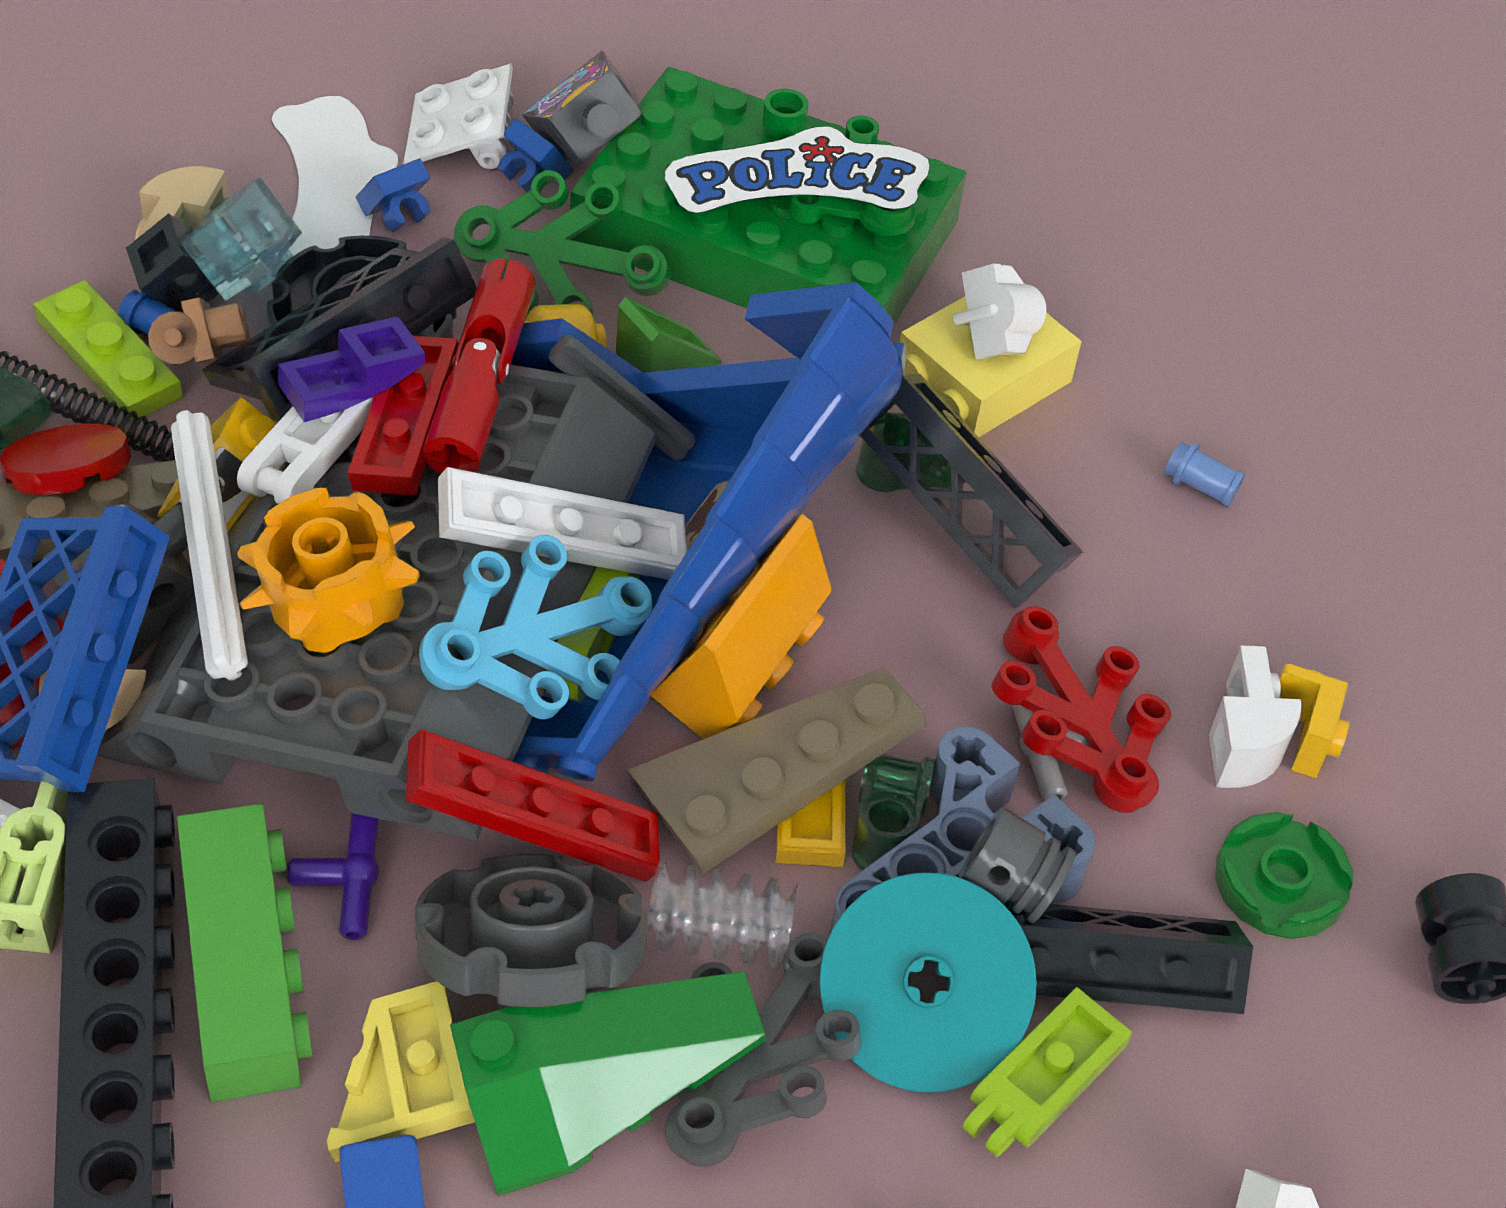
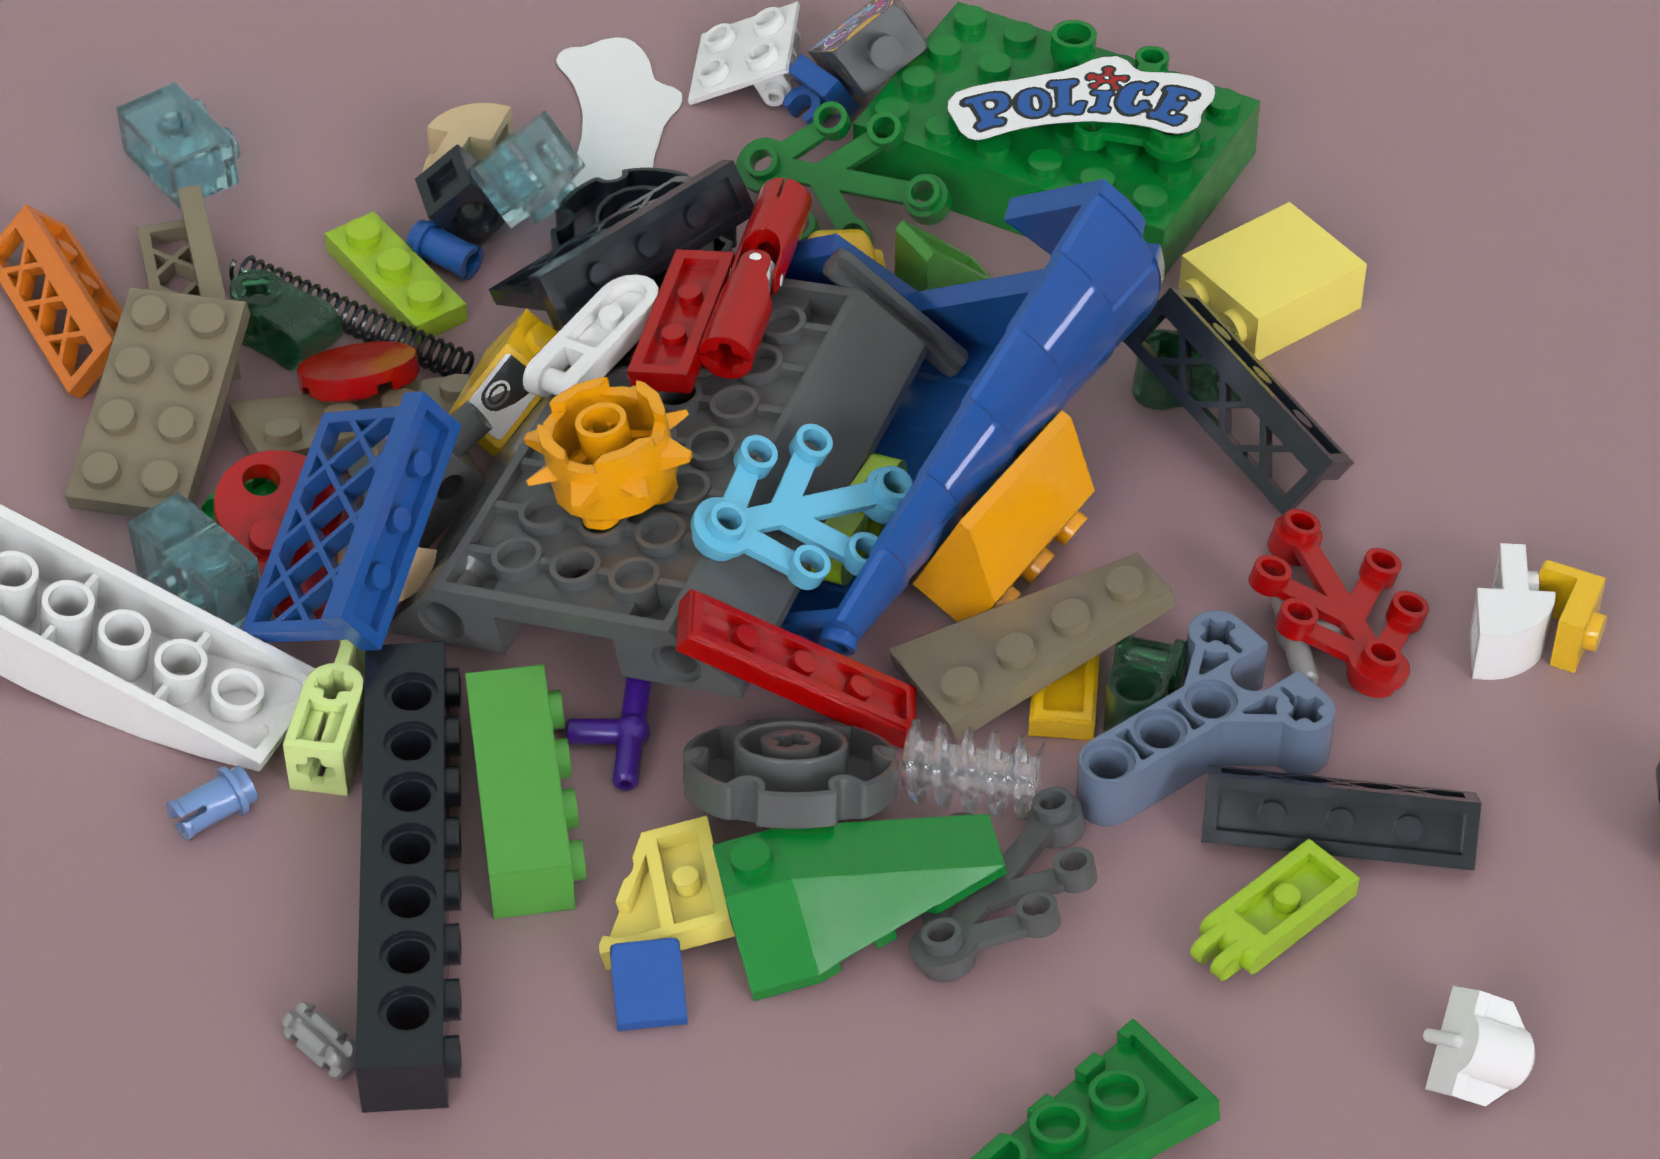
camera: 10 degrees right, 5 degrees down
(198, 332) = (489, 257): medium nougat hips -> none
(208, 547) = (496, 436): white axle -> none
(366, 363) = (646, 274): dark purple slope -> none
(395, 189) = (679, 124): blue tile -> none
(591, 528) = (858, 424): white tile -> none
(972, 945) = (1208, 797): teal piece -> none
(1000, 311) = (1280, 231): white piece -> none
(1018, 864) = (1252, 723): dark grey piece -> none
(1203, 473) = (1487, 391): medium blue pin -> none
(1283, 875) = (1529, 755): green tile -> none

